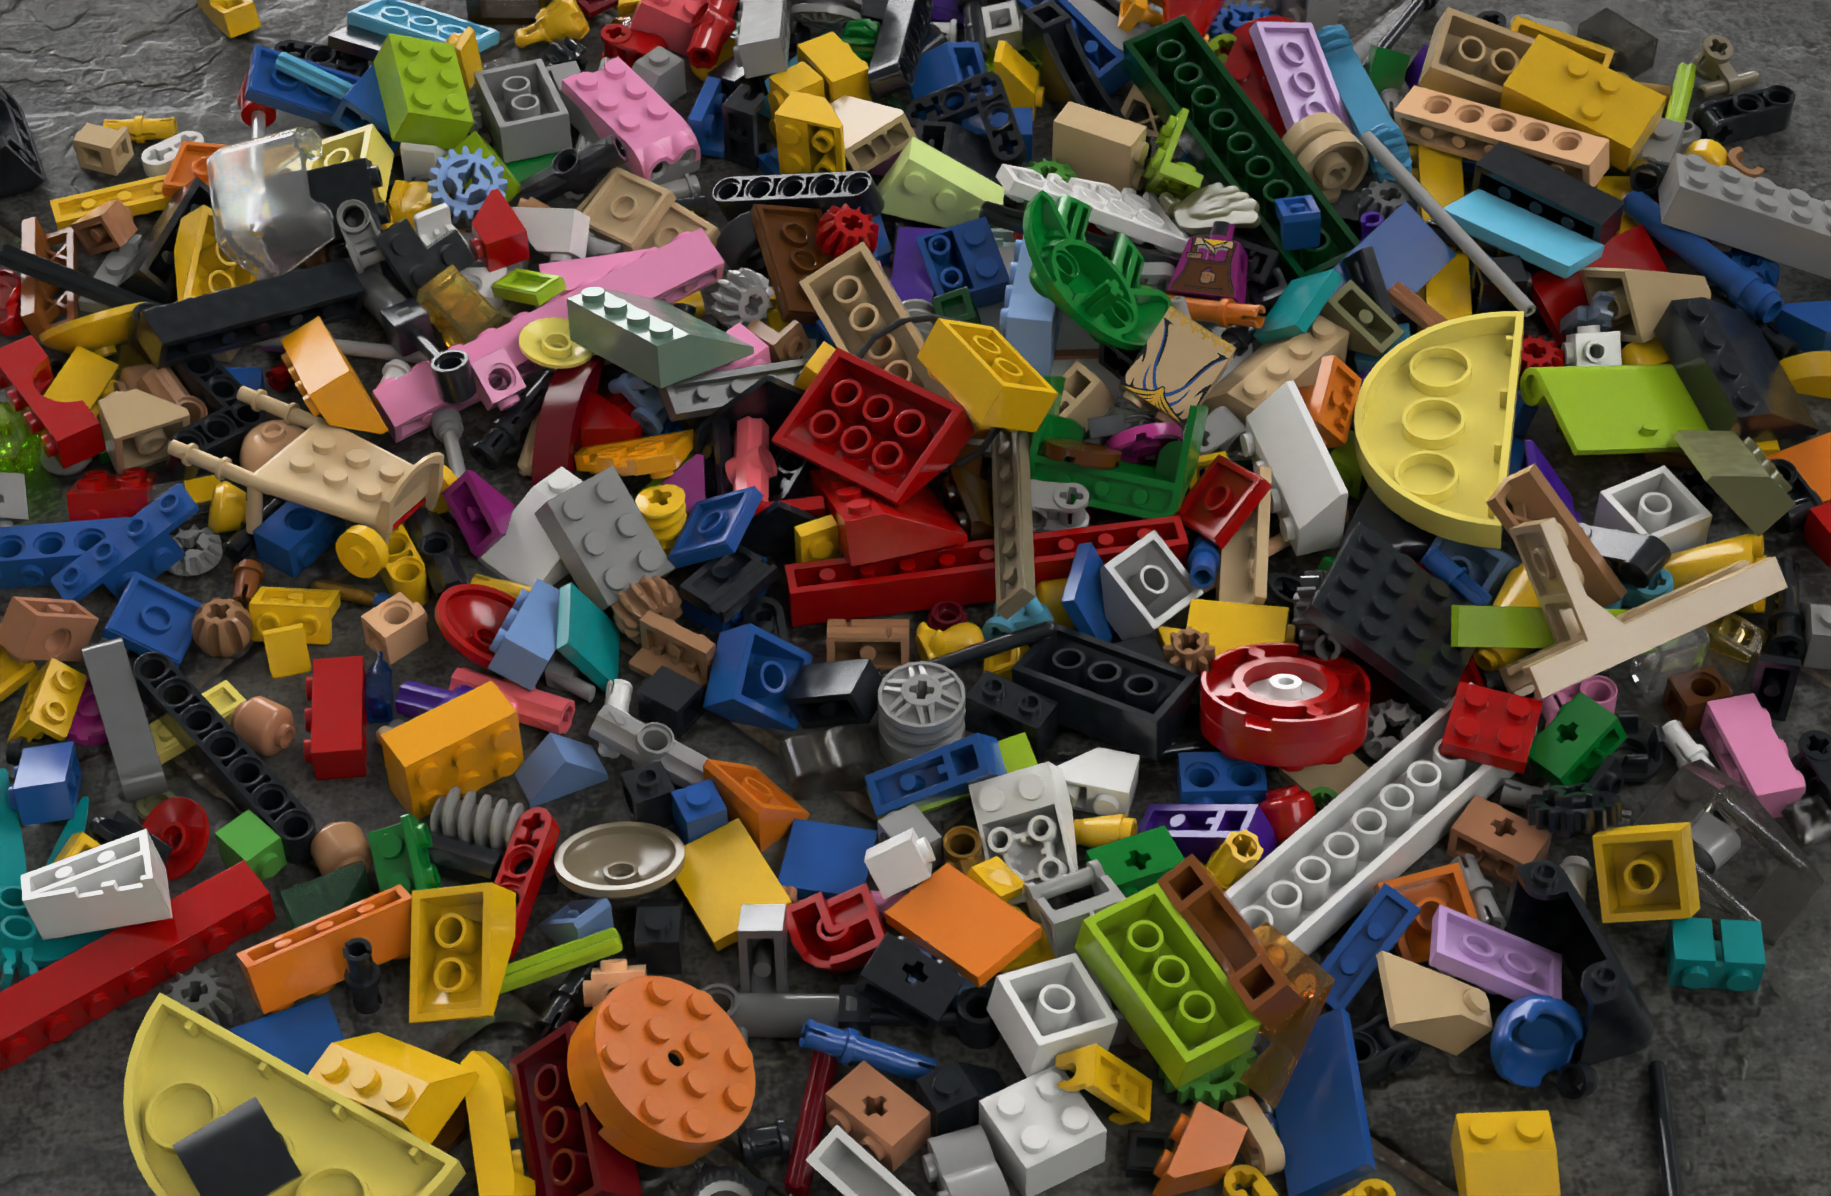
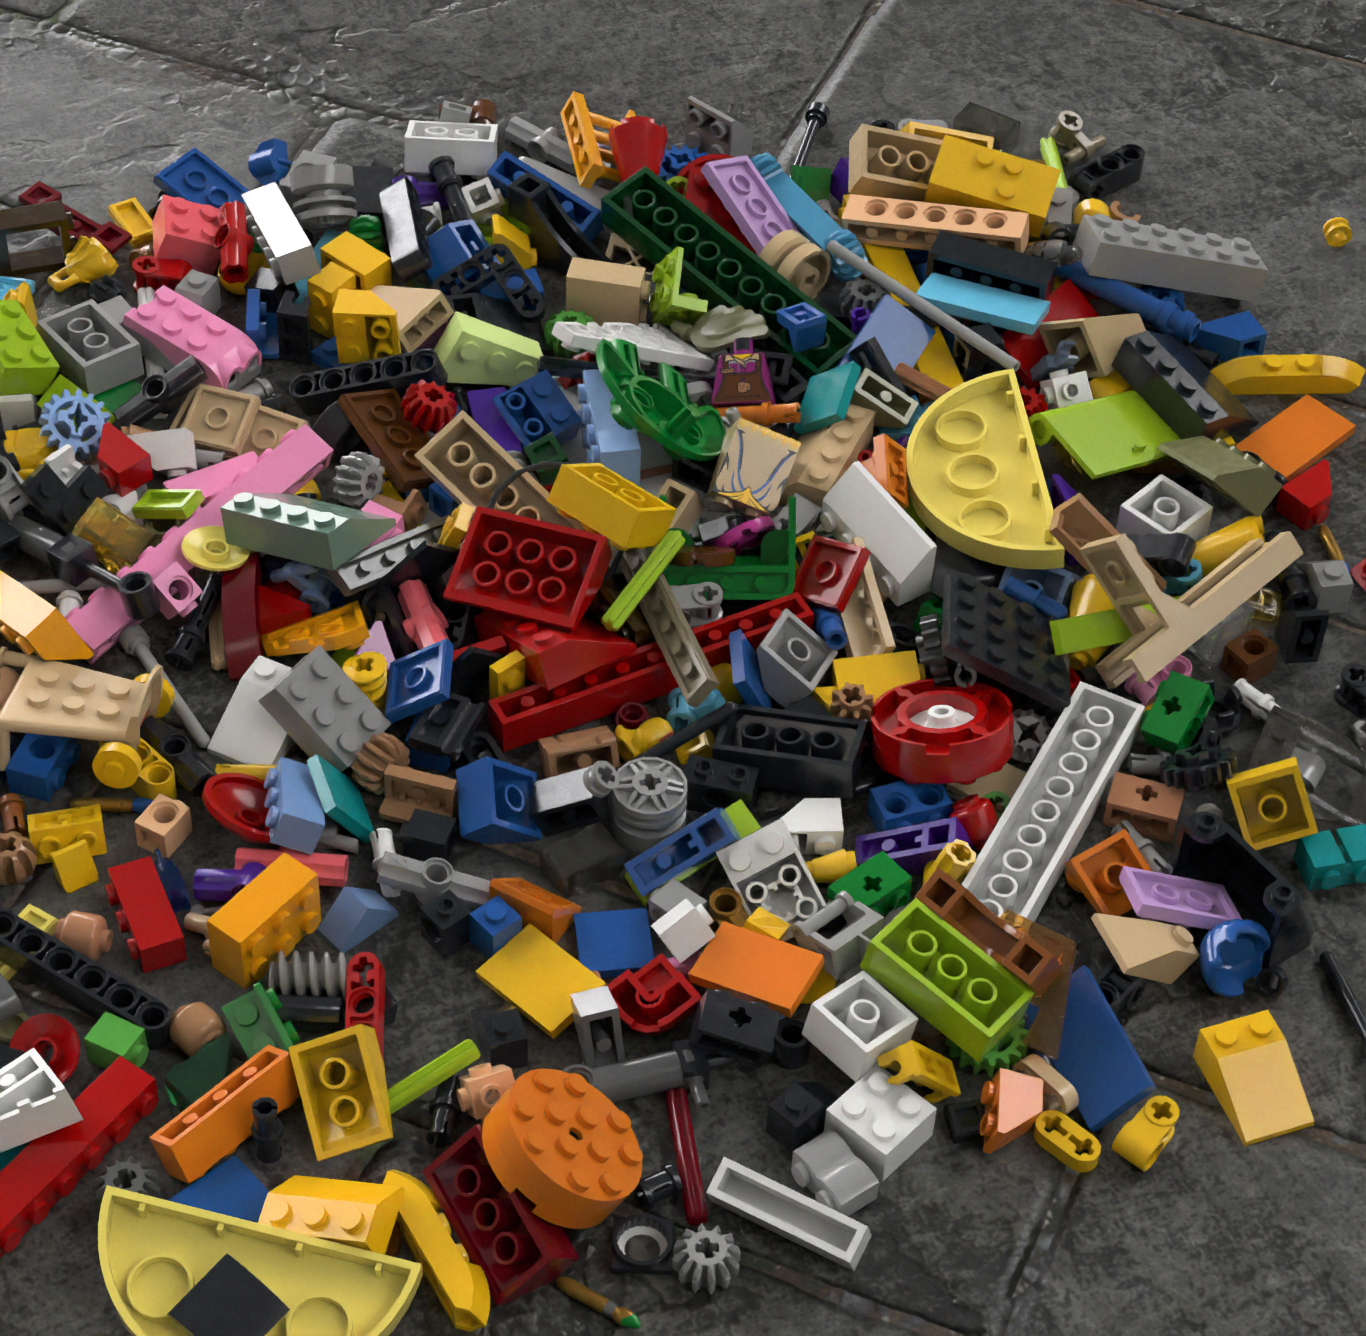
camera: 20 degrees left, 0 degrees up
(479, 511) = (201, 710): magenta slope -> none
(578, 920) = (428, 1041): medium blue slope -> none
(619, 860) = (446, 981): dark tan dish -> none
(849, 1046) = (703, 1091): blue pin -> none
(856, 679) = (601, 779): none -> light grey bush
(878, 1115) = (742, 1139): nougat brick -> none
(998, 466) = (643, 580): none -> lime axle
(1374, 931) = (1080, 902): blue plate -> none
(1491, 727) = (1112, 714): red plate -> none
(1628, 189) = (1055, 251): none -> dark grey hinge
(1751, 751) = (1306, 690): bright pink brick -> none

